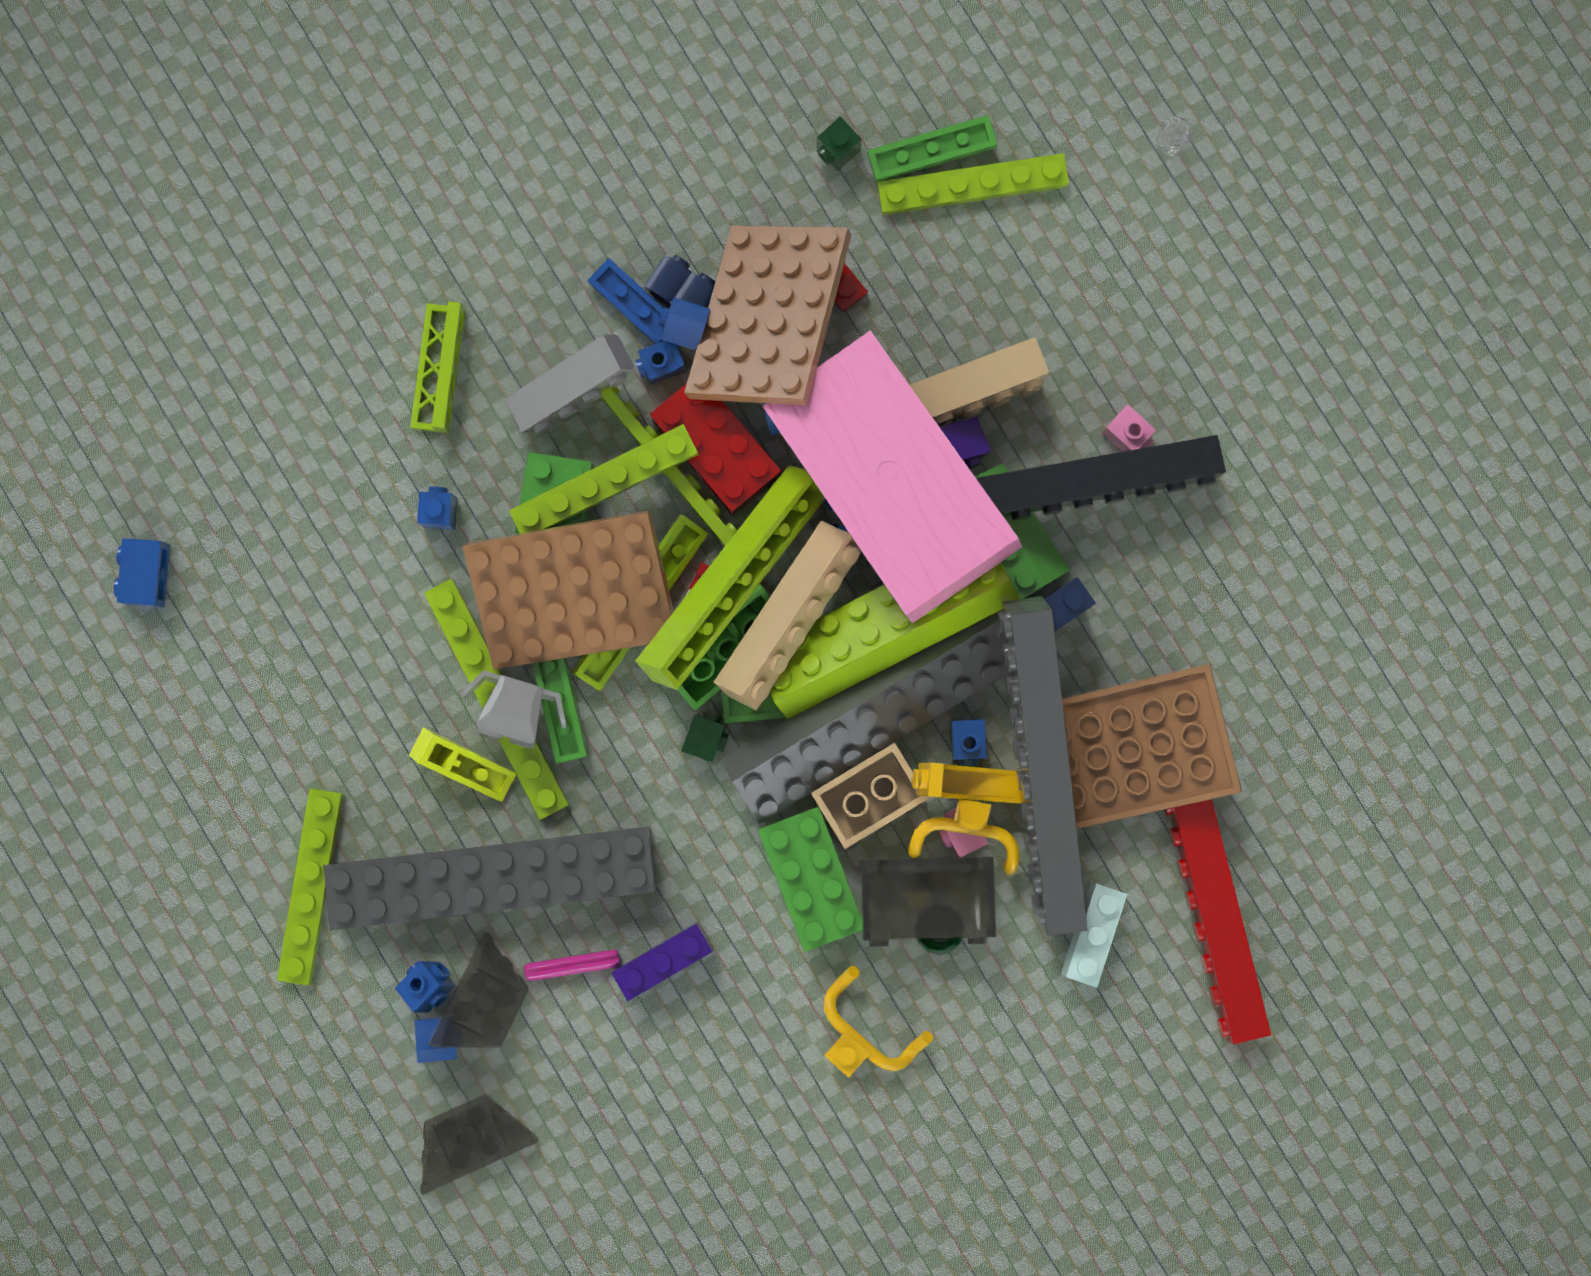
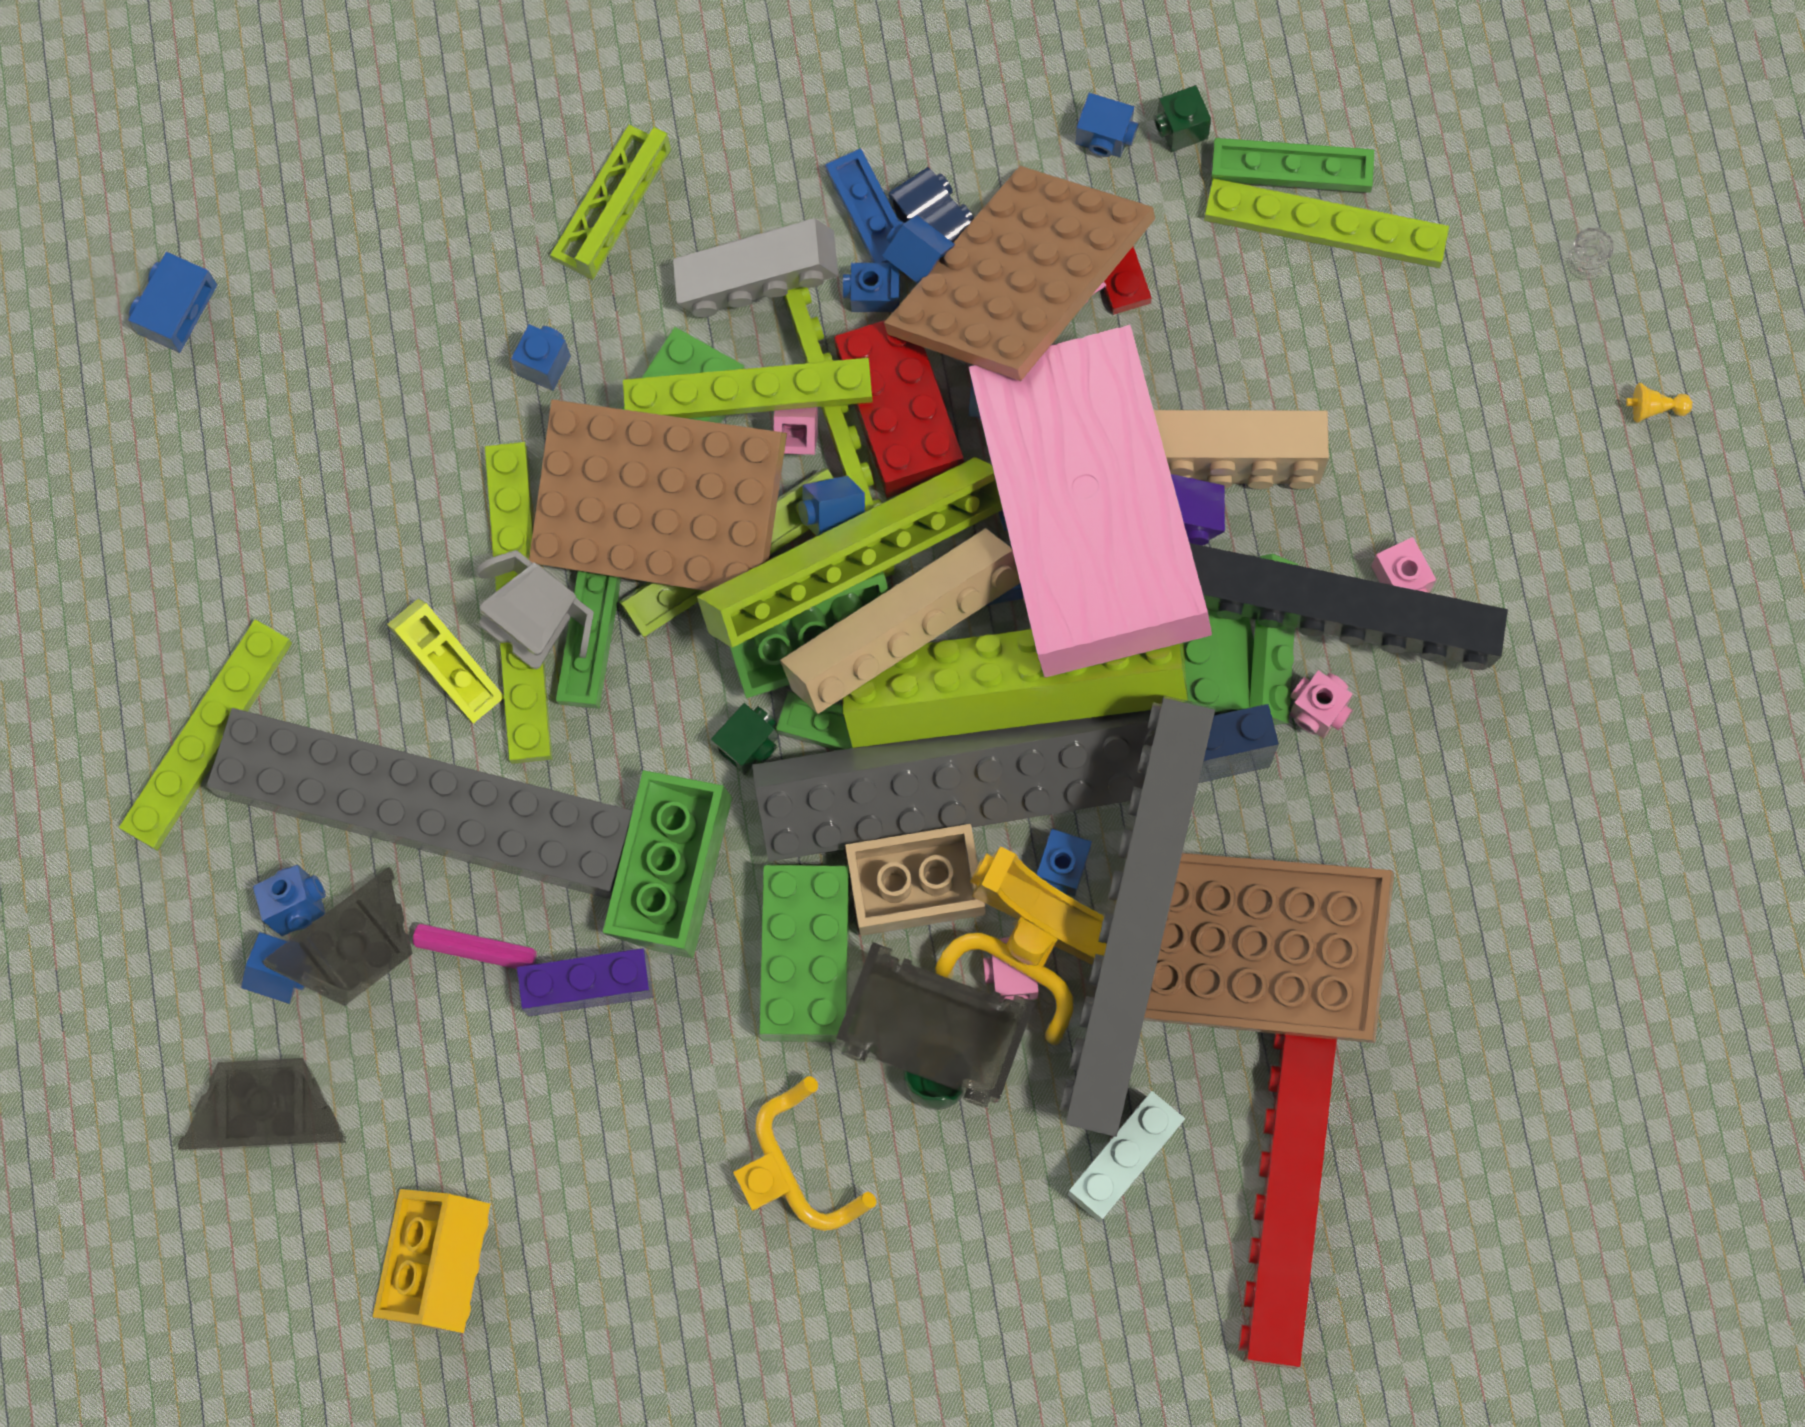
camera: 25 degrees right, 10 degrees down
(636, 1200) = (432, 1260): none -> yellow slope
(650, 496) = (800, 427): none -> bright pink brick
(687, 853) = (668, 863): none -> bright green slope
(699, 544) = (830, 503): none -> blue brick
(783, 171) = (1106, 126): none -> blue brick
(1060, 532) = (1273, 665): none -> bright green plate
(1098, 560) = (1317, 717): none -> bright pink brick
(1258, 233) = (1650, 403): none -> yellow piece

